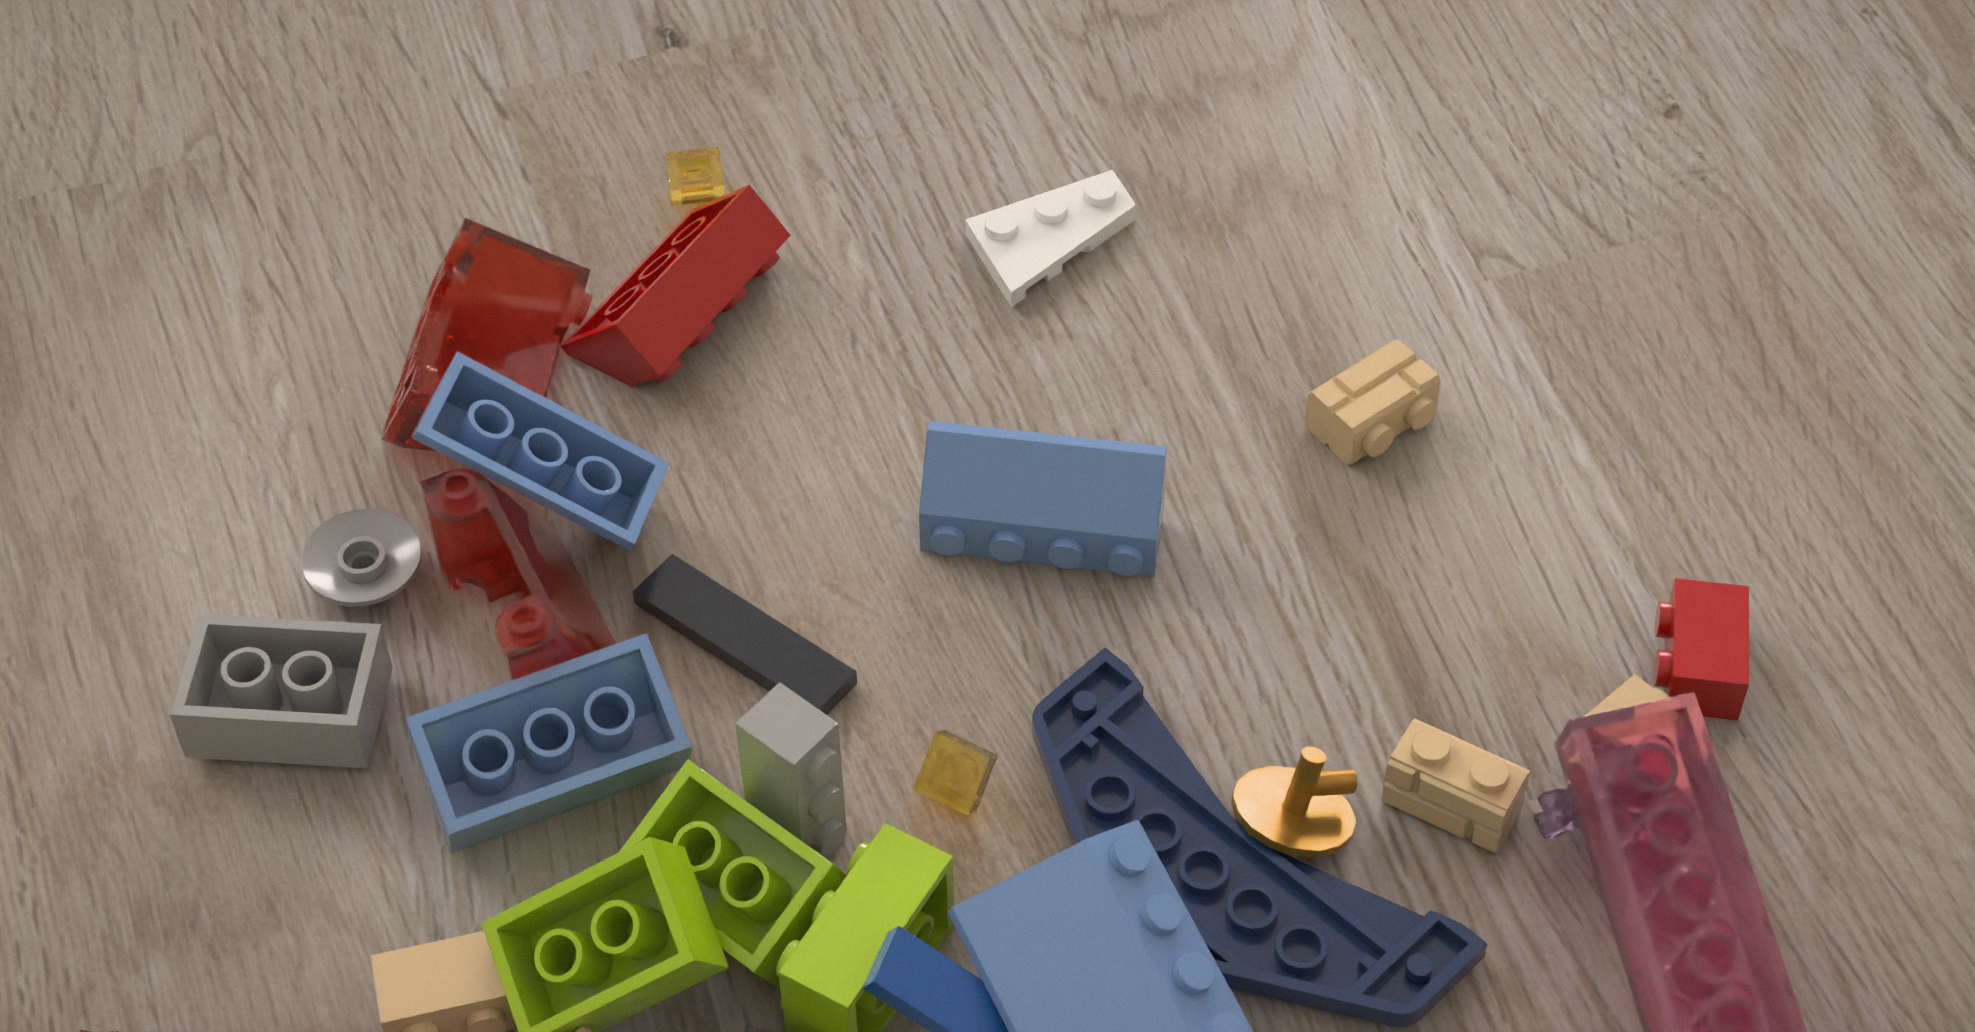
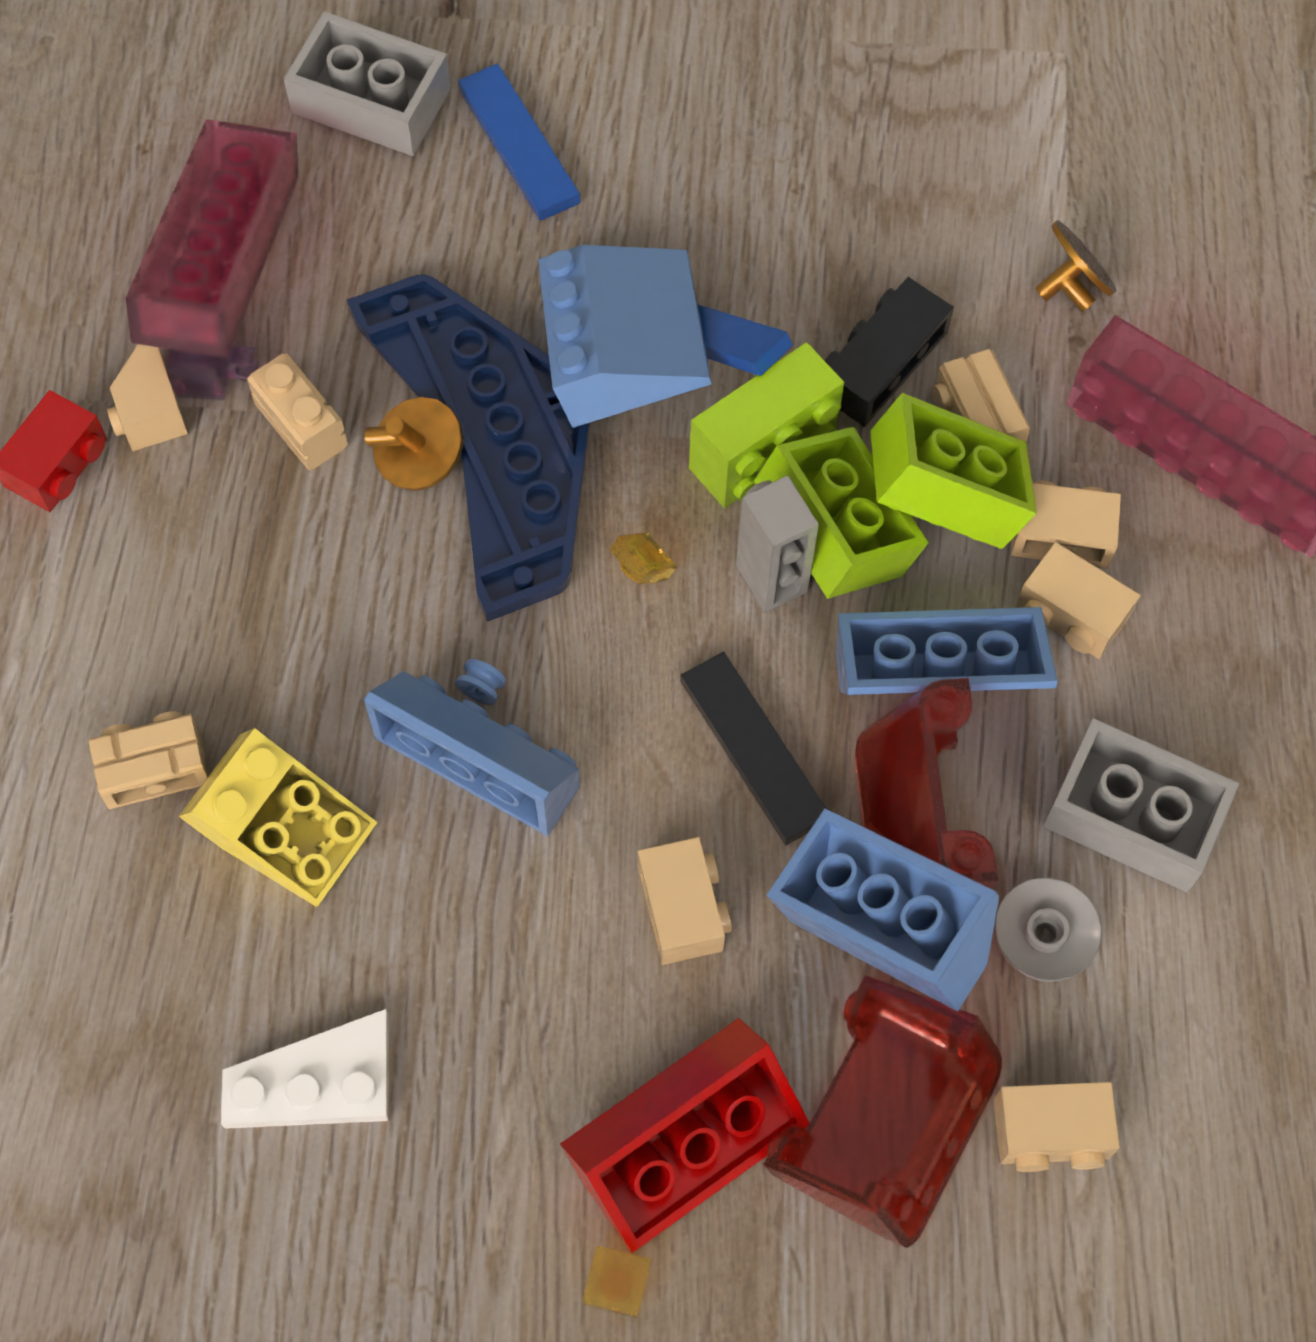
camera: 160 degrees left, 15 degrees up
(313, 403) = (1056, 1125): none -> tan brick
(405, 898) = (1078, 600): none -> tan brick
(760, 461) = (682, 901): none -> tan brick
(1075, 587) = (480, 681): none -> medium blue bush
(1220, 399) = (278, 817): none -> light yellow slope

